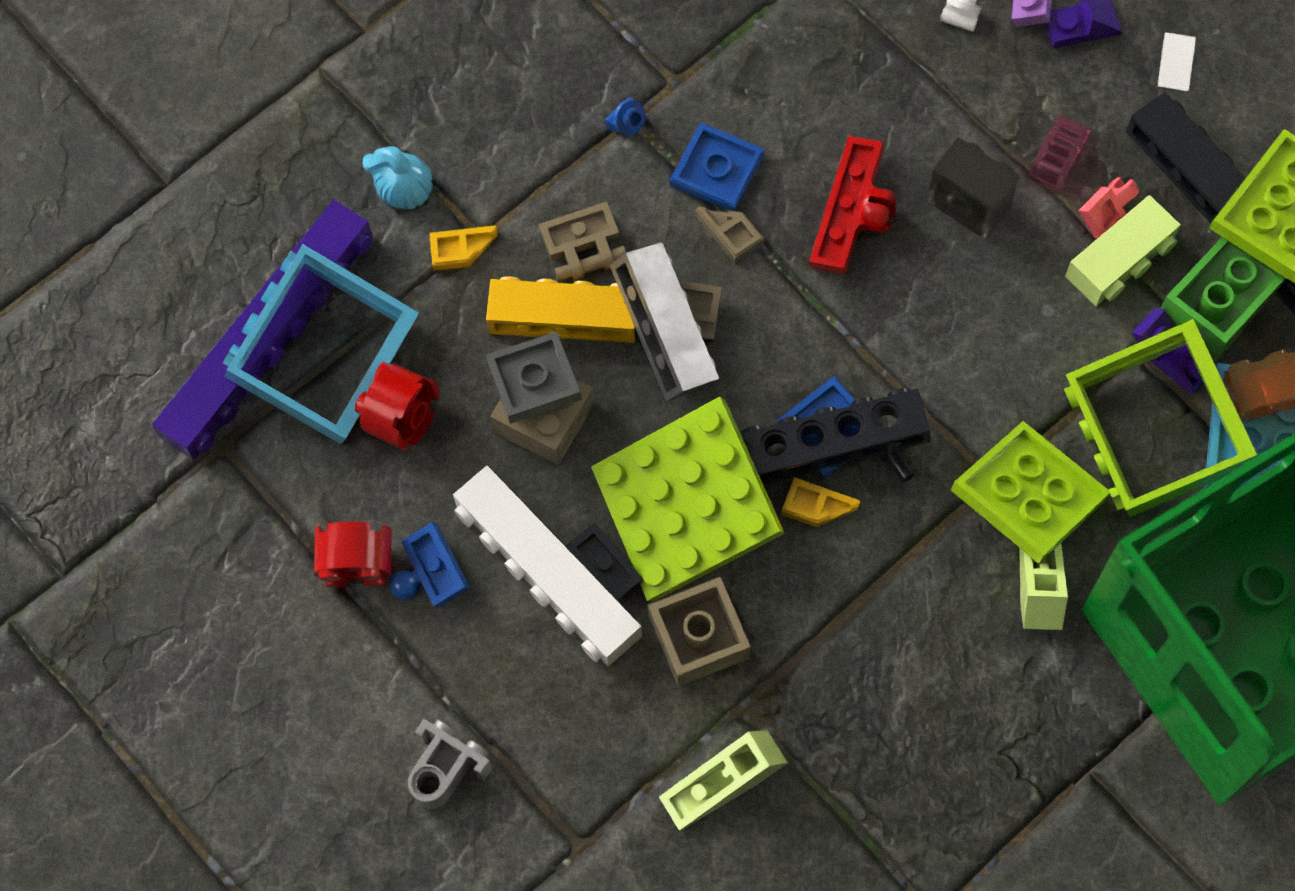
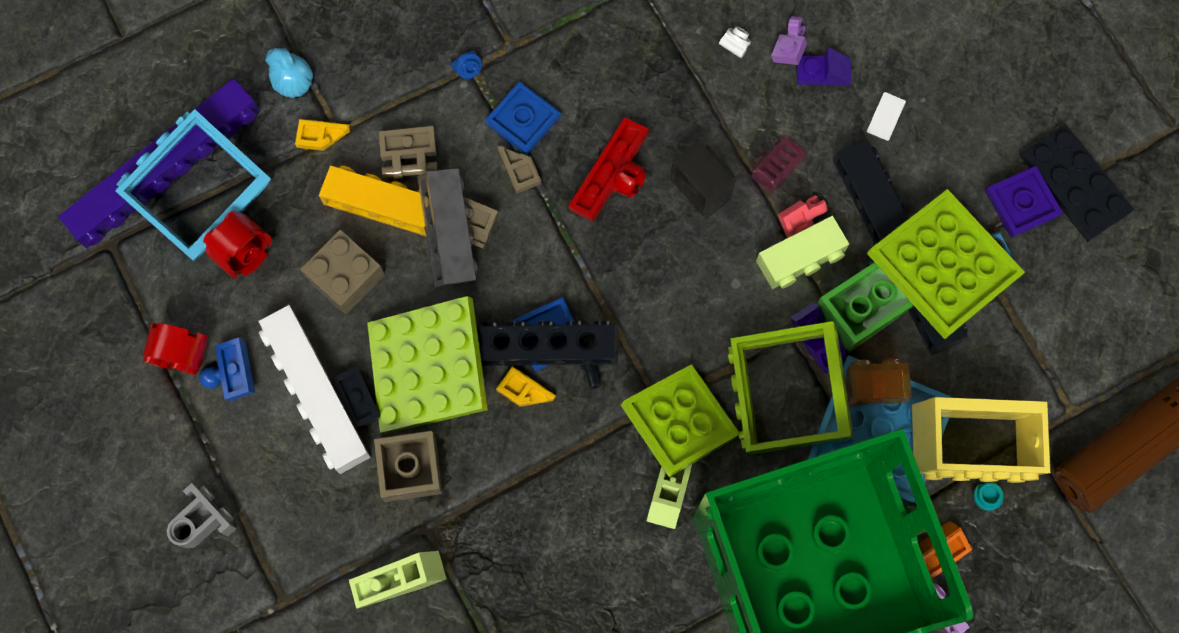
camera: 10 degrees right, 5 degrees up
(533, 377) = (336, 248): dark grey plate -> none

